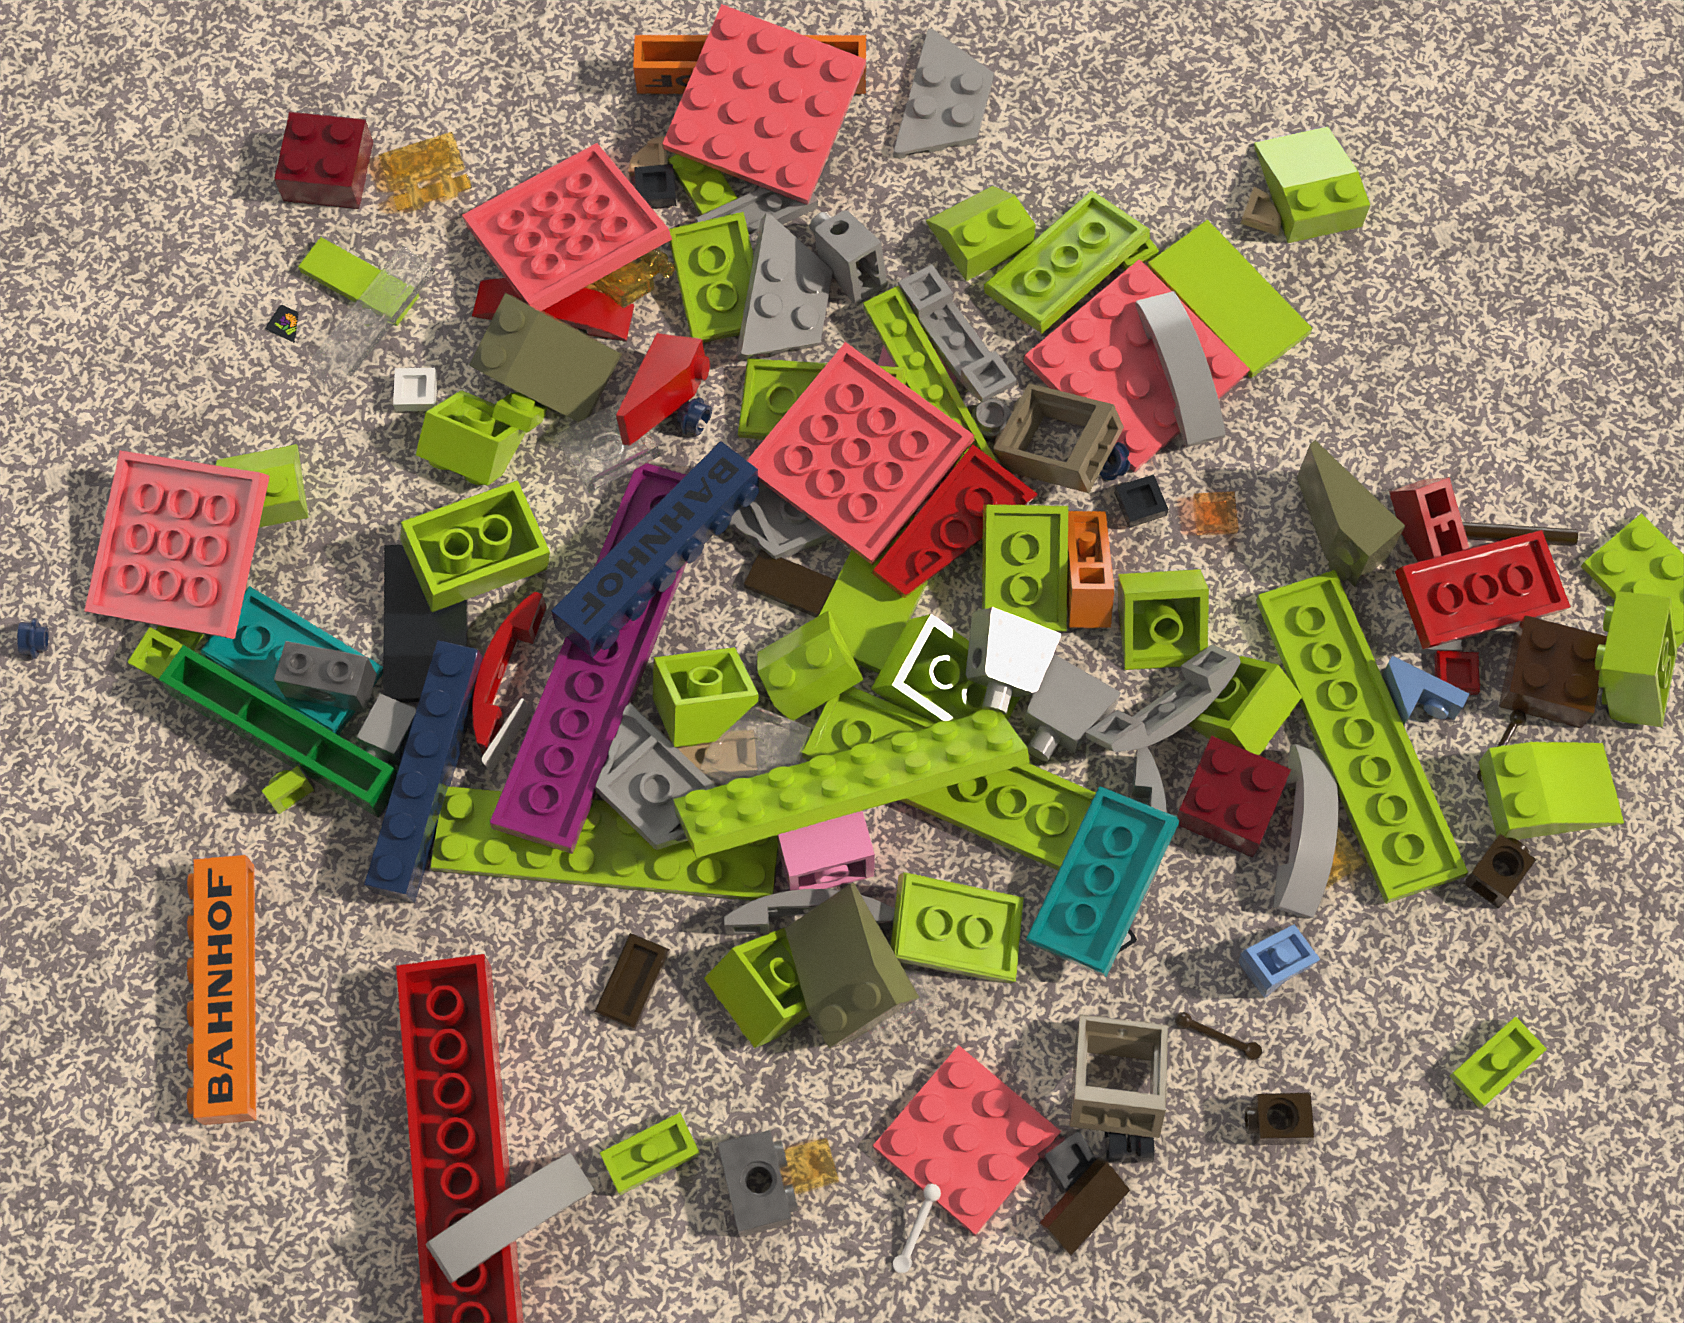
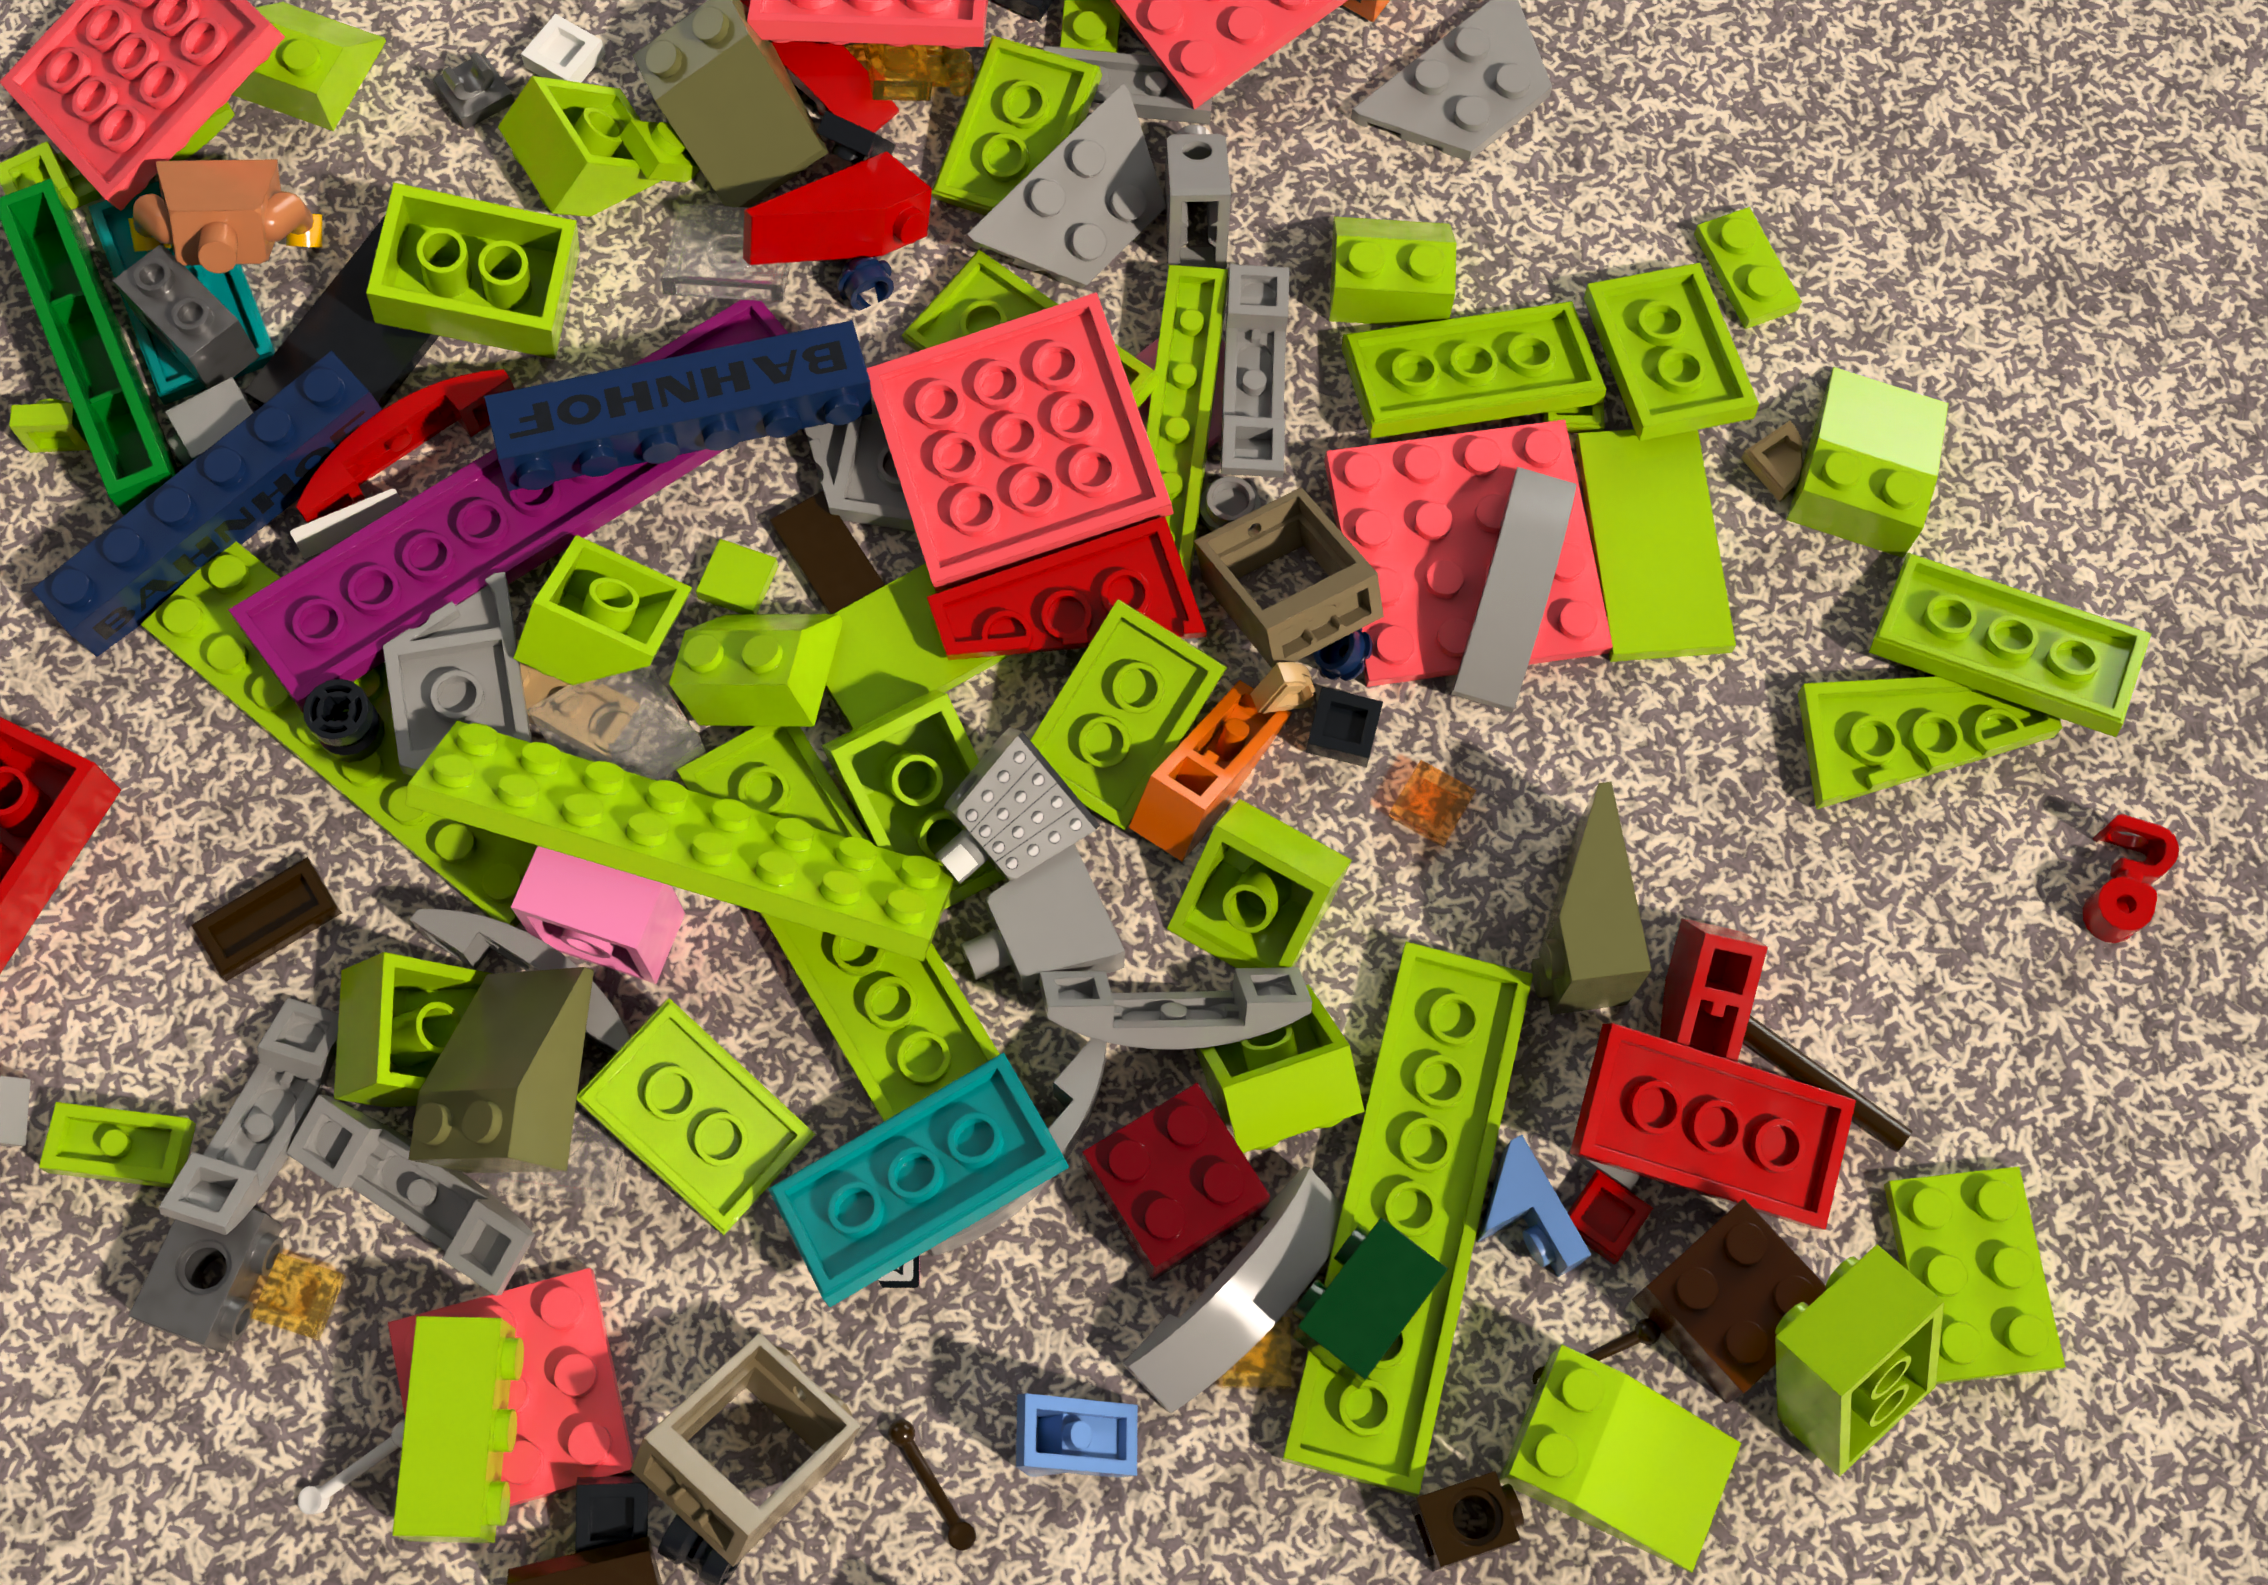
camera: 30 degrees right, 0 degrees up
(303, 605) = (222, 213): none -> nougat torso
(376, 443) = (473, 90): none -> flat silver tile
(603, 851) = (352, 733): none -> black wheel
(631, 339) = (852, 141): none -> black plate
(722, 1083) = (253, 1139): none -> light grey slope
(749, 627) = (737, 578): none -> lime tile
(841, 1067) = (437, 1202): none -> light grey slope
(964, 1167) = (457, 1430): none -> lime brick
(1096, 501) = (1284, 688): none -> tan tile
(1166, 186) = (1670, 351): none -> lime plate
(1170, 114) = (1747, 268): none -> lime plate
(1378, 790) = (1368, 1300): none -> dark green brick
(1429, 319) = (1905, 729): none -> lime wing
(1452, 239) = (2011, 644): none -> lime tile
(1601, 341) = (2129, 899): none -> red leg

